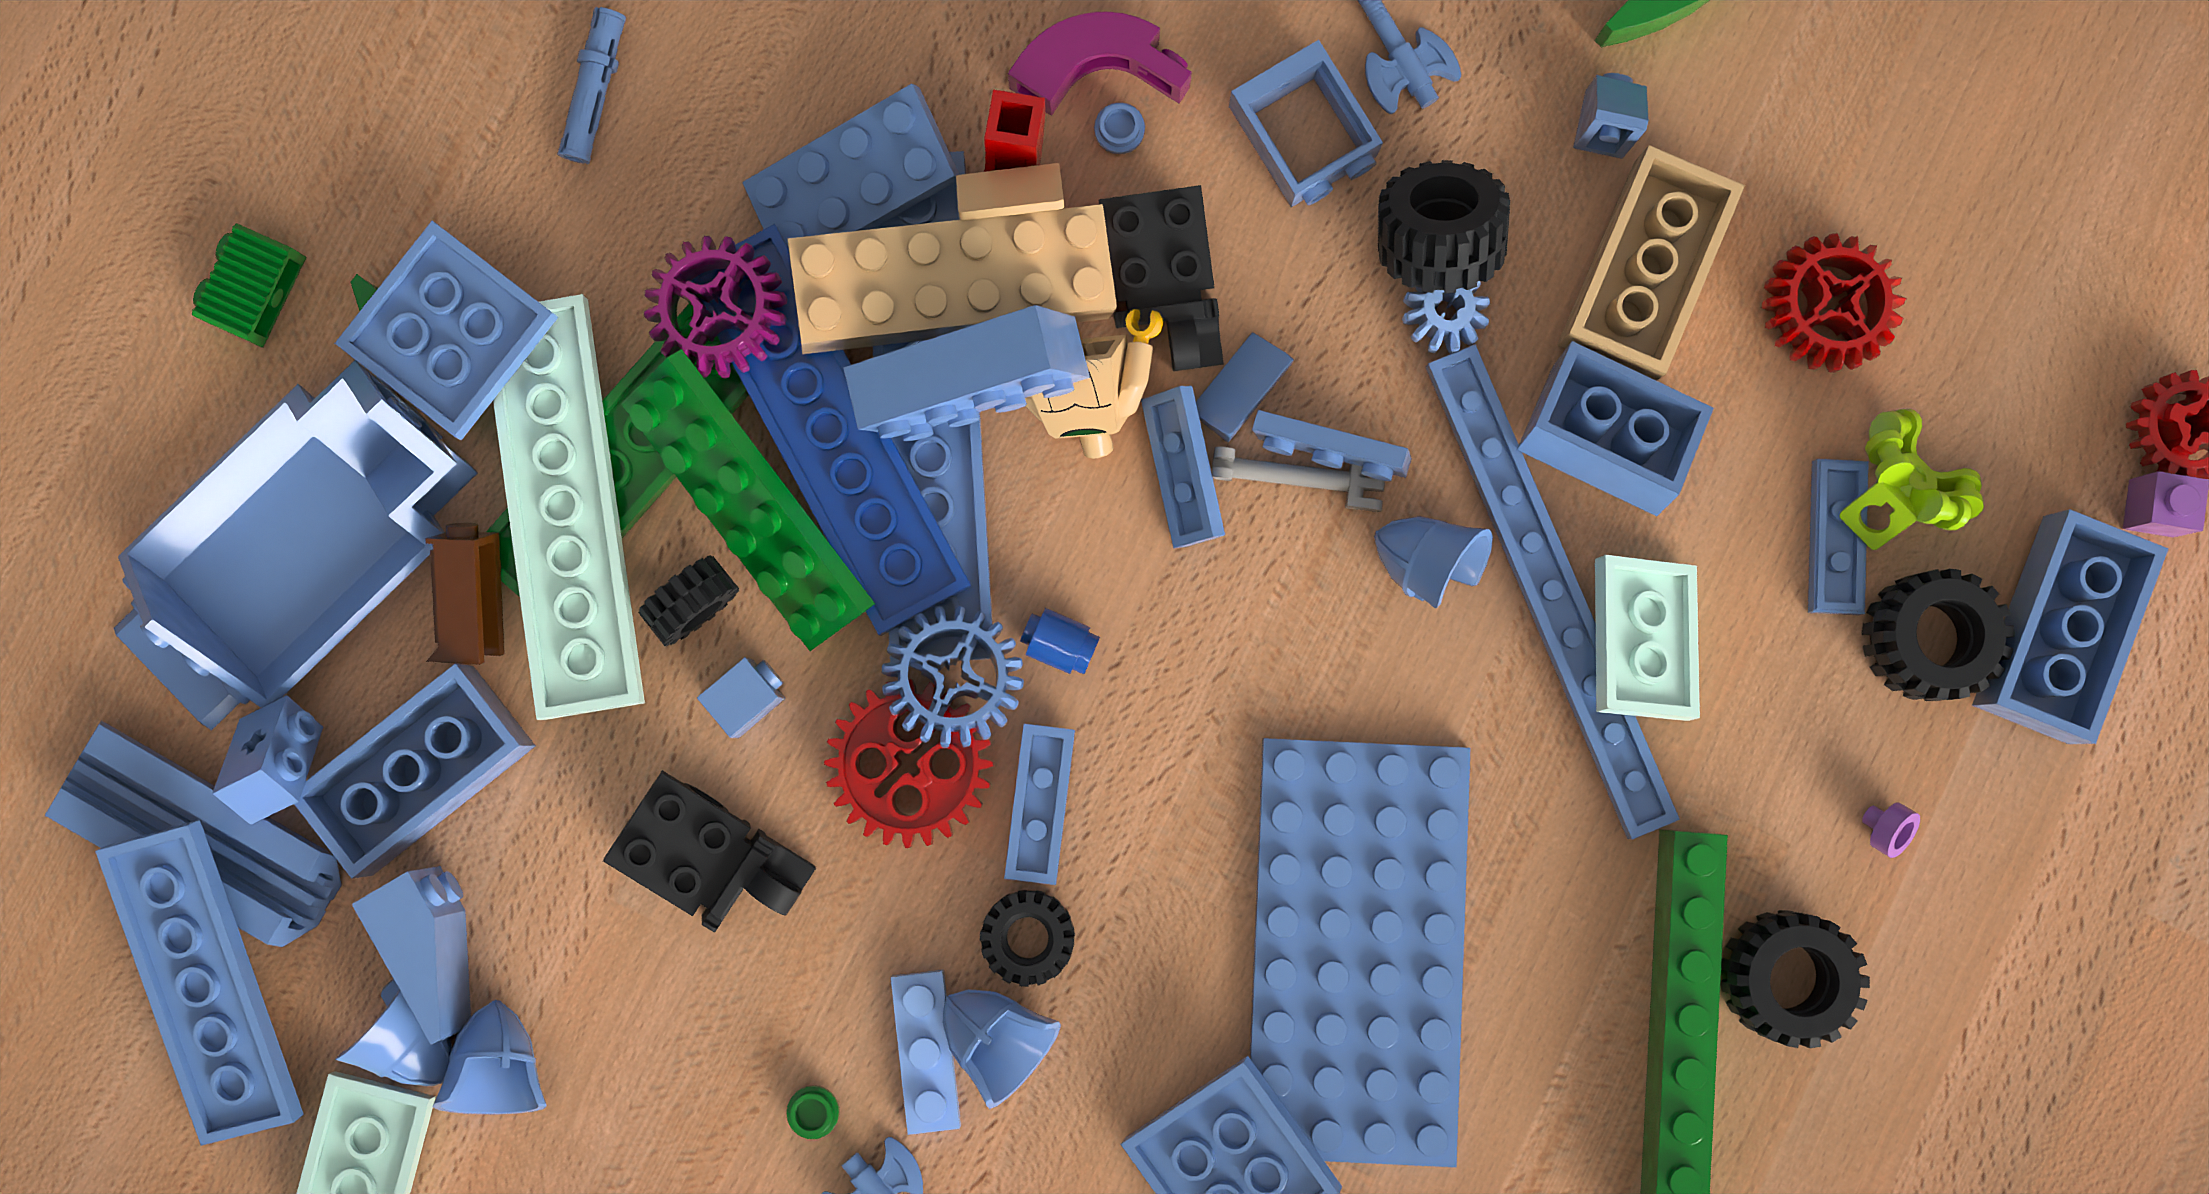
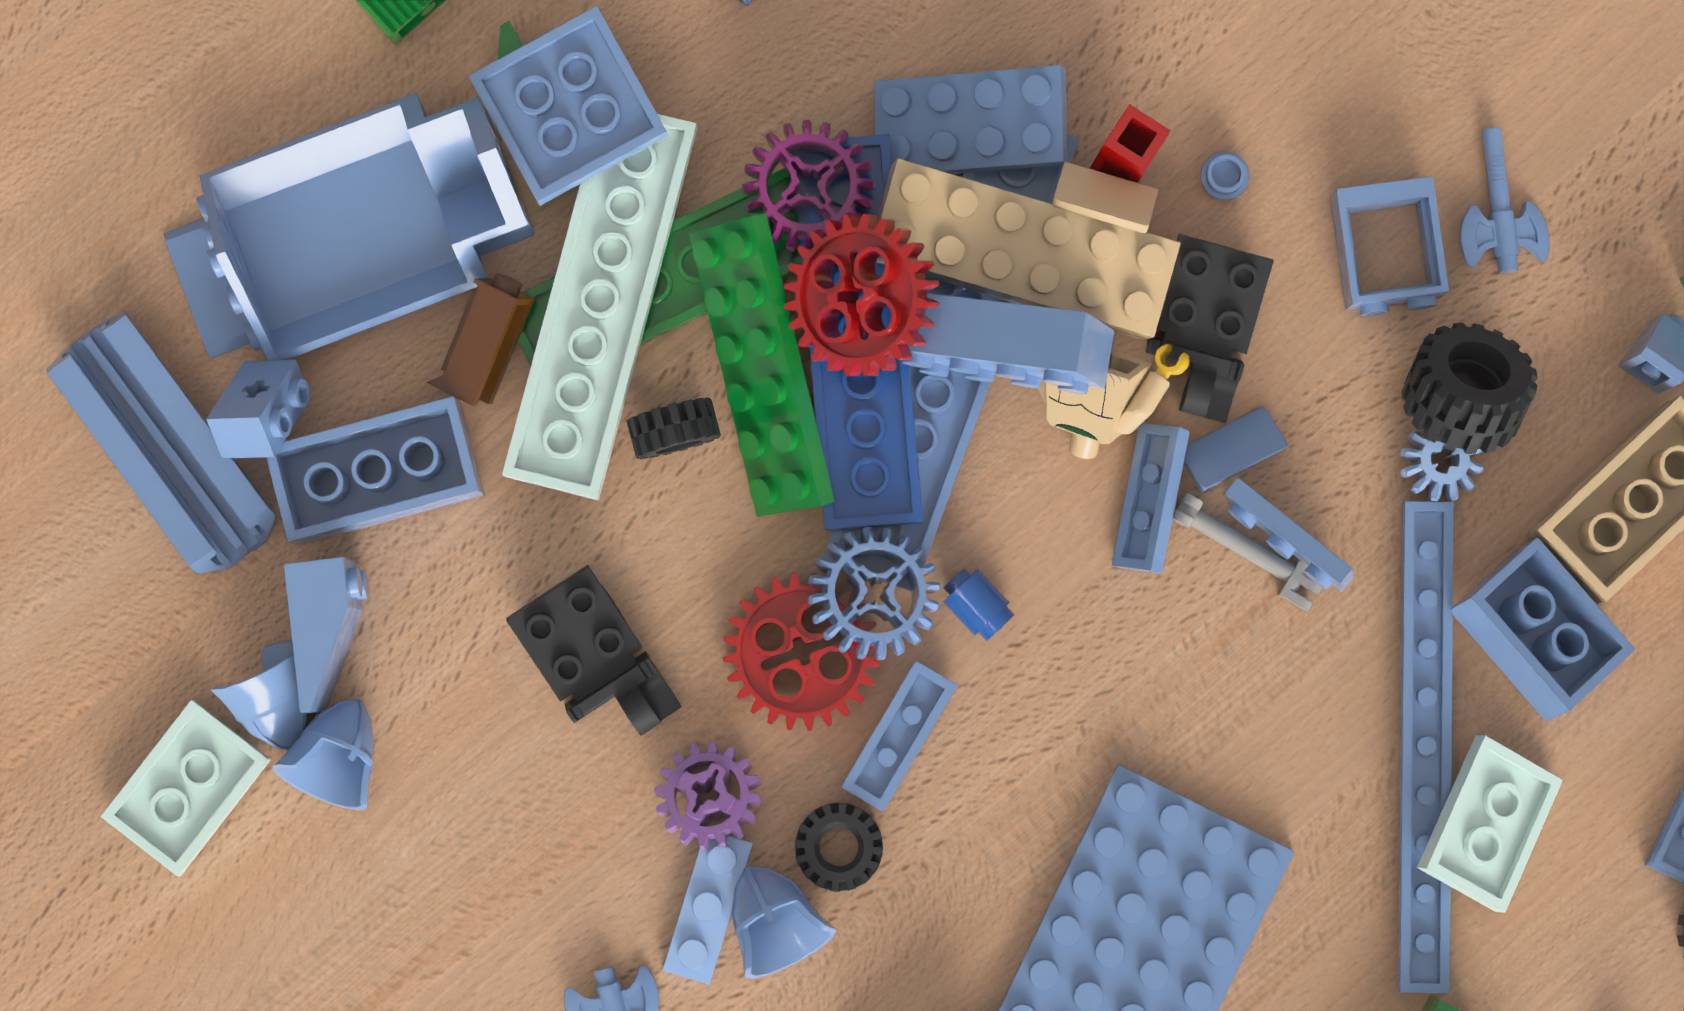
camera: 25 degrees right, 0 degrees up
(200, 982) = (119, 574): medium blue plate -> none
(743, 696) = (683, 530): medium blue brick -> none
(813, 1112) = (589, 915): green plate -> none
(840, 363) = (822, 302): none -> red gear
(877, 965) = (717, 776): none -> medium lavender gear
(1093, 44) = (1233, 92): magenta arch -> none
(1428, 552) = (1331, 666): medium blue helmet -> none

